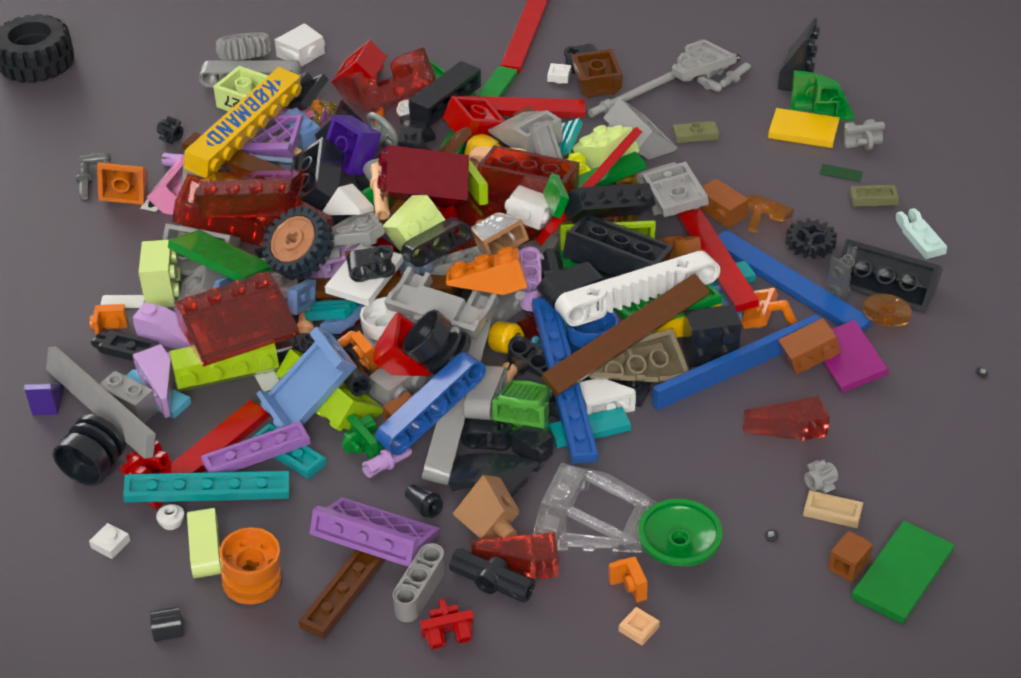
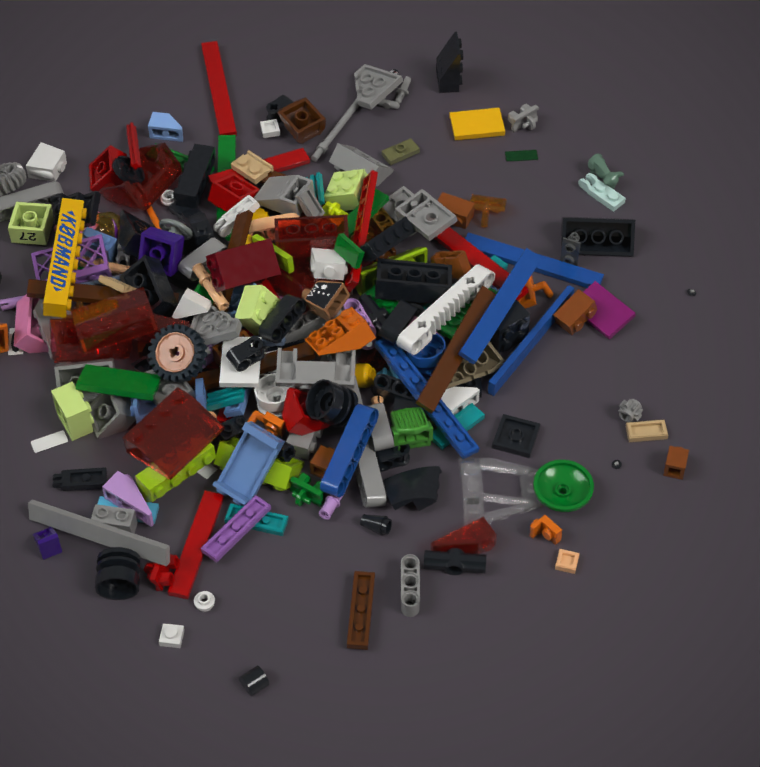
camera: 25 degrees left, 10 degrees up
(108, 317) = (53, 459): orange bracket -> none
(160, 325) = (104, 453): lavender slope -> none
(204, 543) = (243, 612): yellowish green beam -> none
(206, 486) = (219, 570): teal plate -> none
(250, 565) = (292, 617): orange wheel -> none
(279, 160) = (115, 284): none -> tan tile
(371, 530) = (353, 566): medium lavender fence -> none
(375, 66) = (125, 172): none -> black tile
(396, 50) = (133, 146): none -> red axle
(443, 44) = (164, 127): none -> light blue slope
(445, 620) = (440, 616): red hips -> none
(479, 131) = (226, 222): none -> white hinge
(488, 509) = (430, 516): medium nougat torso -> none
(510, 99) = (252, 167): none -> tan plate
(532, 443) = (427, 454): black brick -> none
(657, 461) = (516, 436): none -> black tile
(704, 303) = (499, 306): none -> blue tile
(792, 420) = (589, 374): clear red slope -> none
(811, 238) = (531, 221): black gear -> none
(819, 95) = (478, 94): green slope -> none
(874, 195) = (556, 169): olive plate -> none
(887, 310) = (611, 264): clear orange dish -> none
(903, 572) = (711, 460): green tile -> none
(928, 205) = (598, 166): none -> sand green animal

